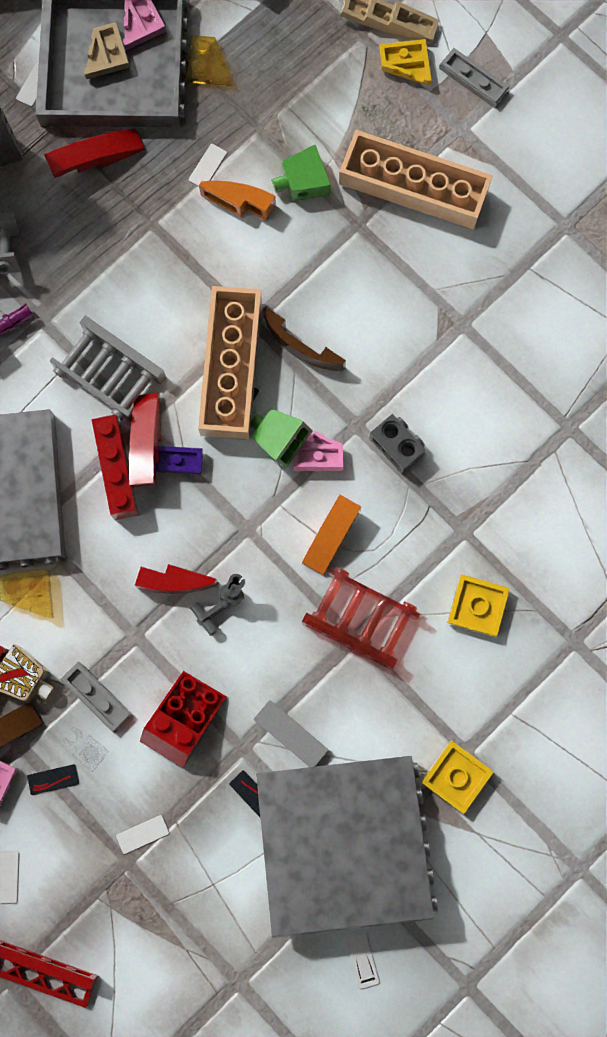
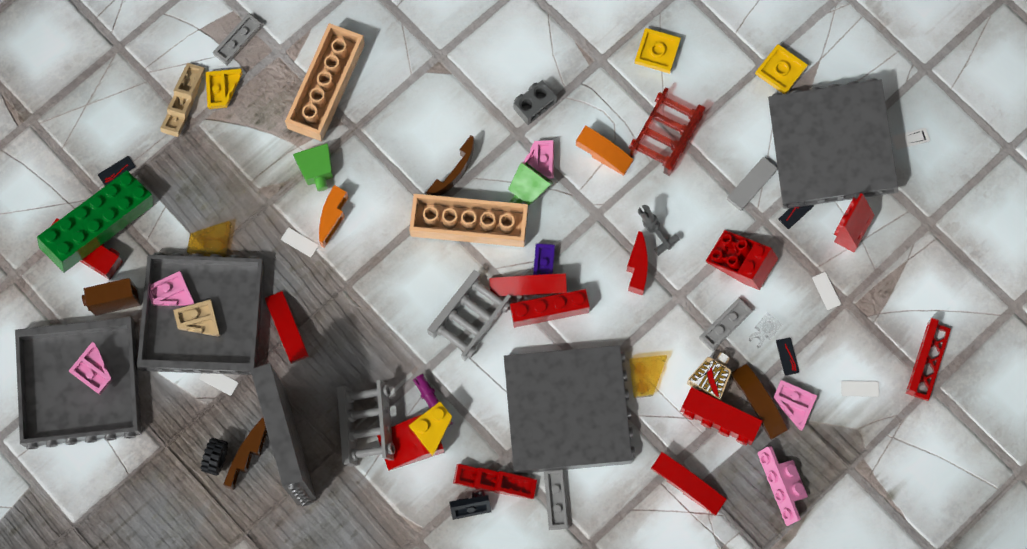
camera: 90 degrees left, 5 degrees down
(225, 873) = (854, 223): none -> red slope

